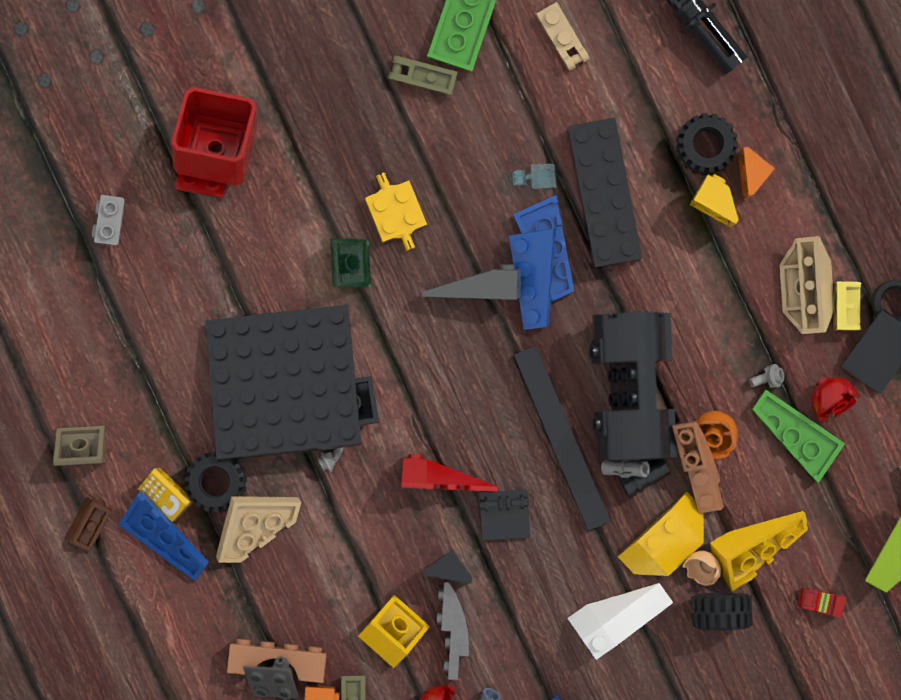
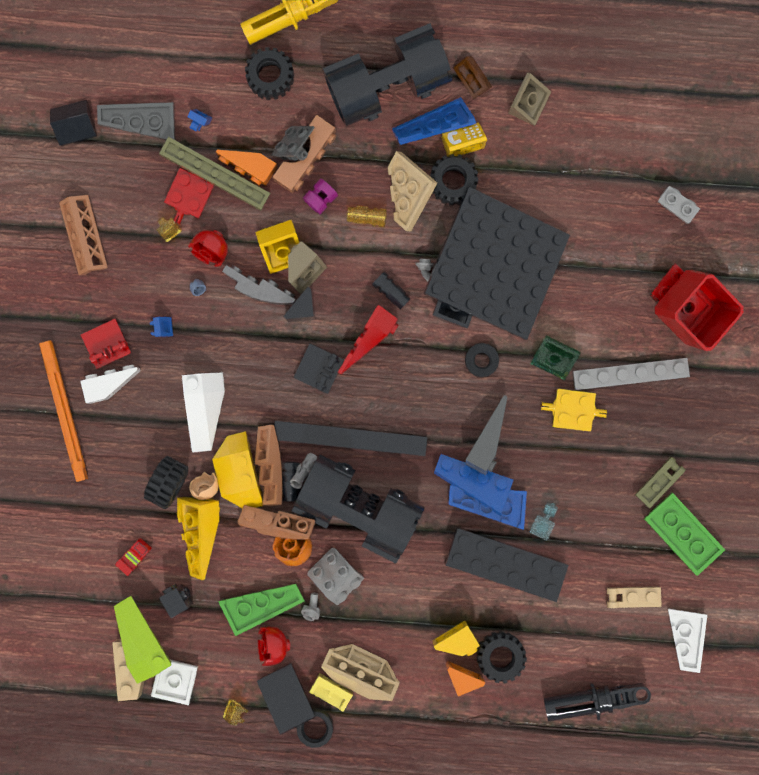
camera: 125 degrees right, 0 degrees up
(108, 591) = (420, 64): none -> black cylinder
(309, 558) = (366, 216): none -> clear yellow axle
(322, 171) = (631, 374): none -> light grey plate
(323, 619) = (315, 201): none -> magenta wheel
(375, 481) = (391, 290): none -> black axle
(382, 337) = (470, 360): none -> black tyre
(403, 592) = (303, 267): none -> dark tan slope
(634, 513) = (269, 460): none -> nougat slope
(720, 371) = (335, 576): none -> light grey bracket
(841, 529) = (176, 599): none -> black brick

